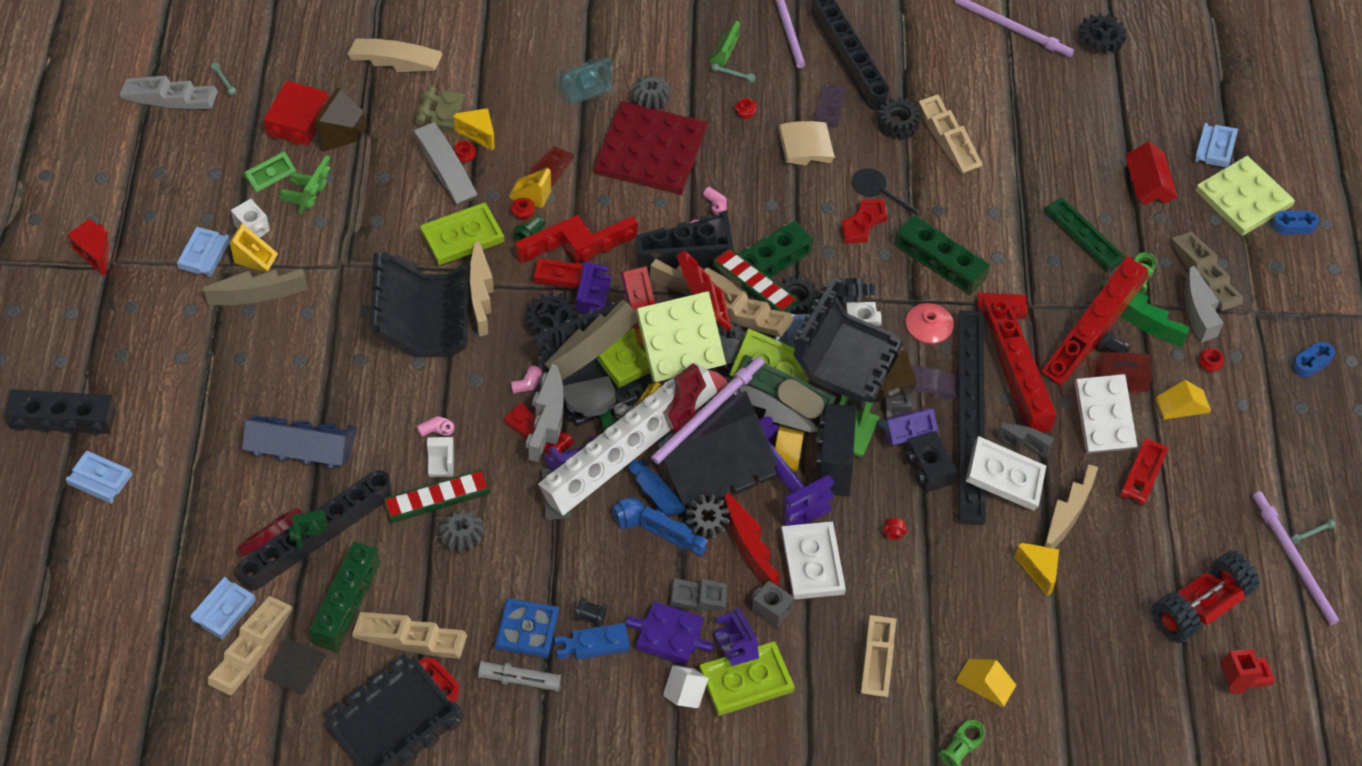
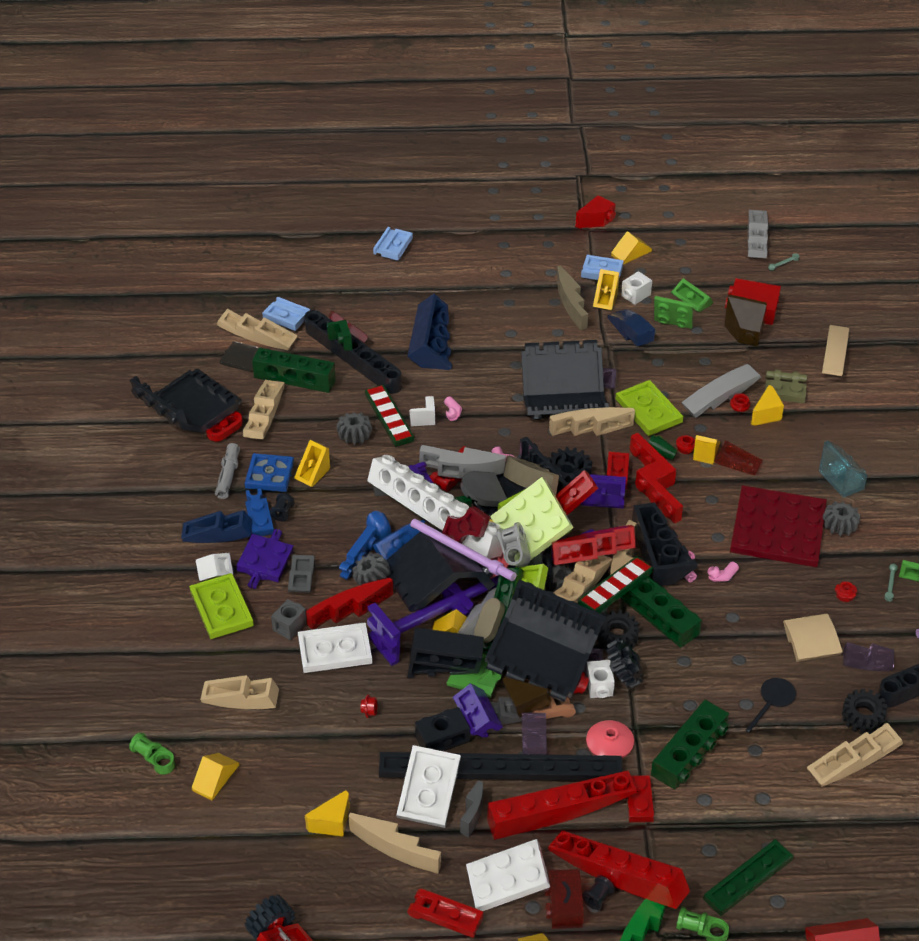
camera: 90 degrees right, 10 degrees down
(47, 405) = (444, 218): black brick -> none
(170, 221) = (630, 248): none -> yellow slope
(318, 233) = (632, 327): none -> dark blue slope
(523, 576) = (313, 464): none -> yellow slope
(621, 686) = (217, 528): none -> dark blue slope
(717, 352) = (514, 540): none -> light grey piece
(737, 638) = (253, 595): dark purple hinge -> none
(857, 227) = (733, 690): red tile -> none

